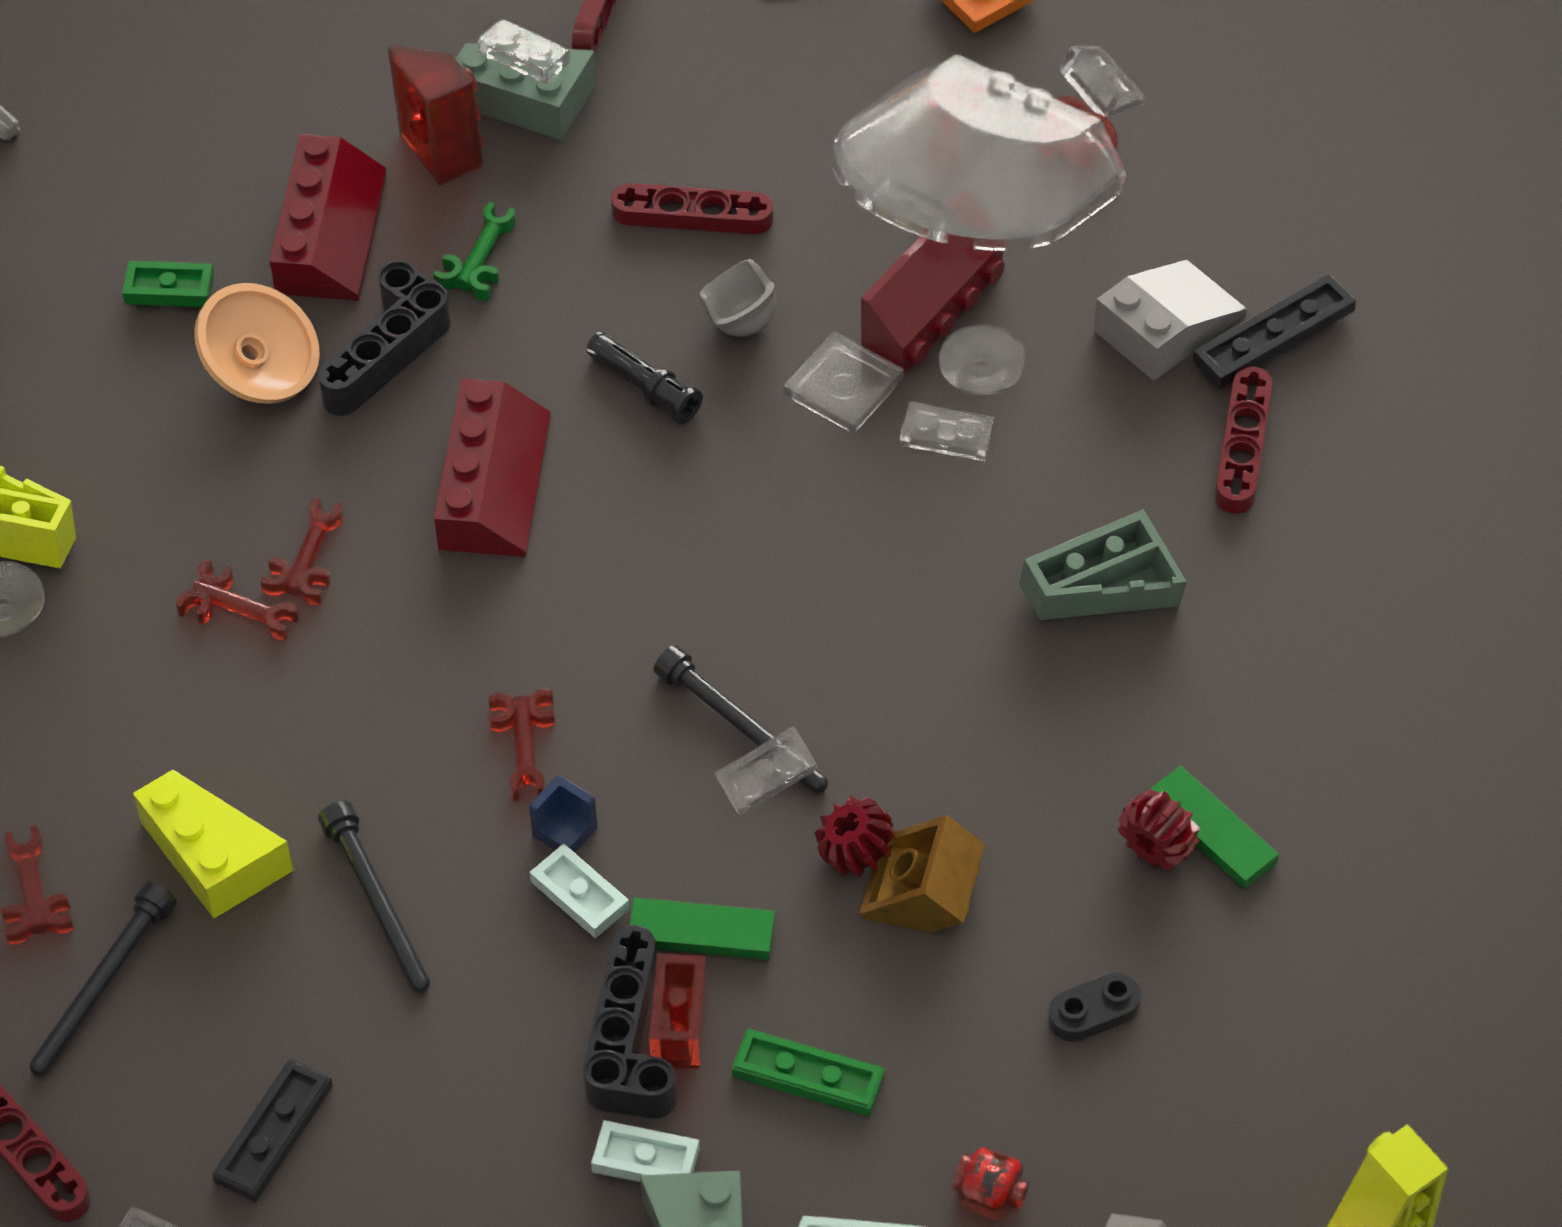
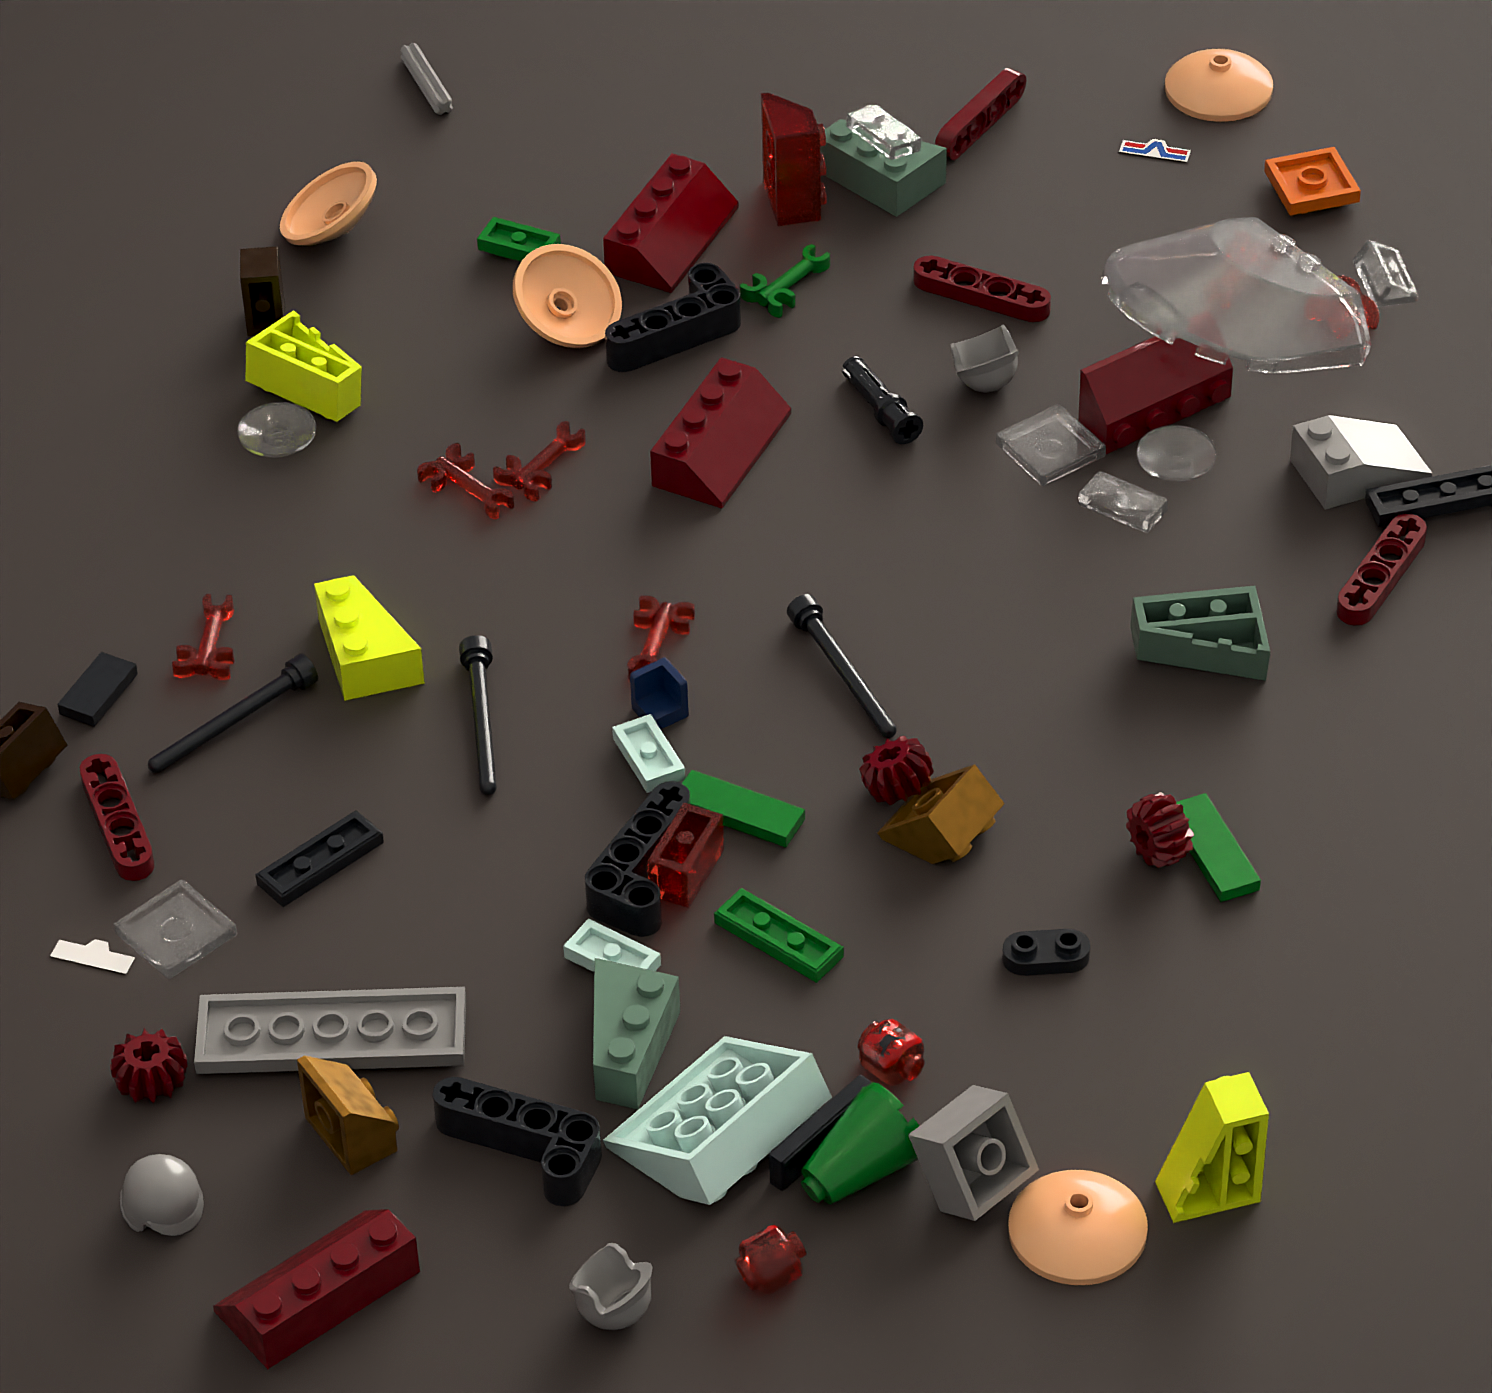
camera: 20 degrees right, 10 degrees down
(767, 770) = (845, 704): clear plate -> none

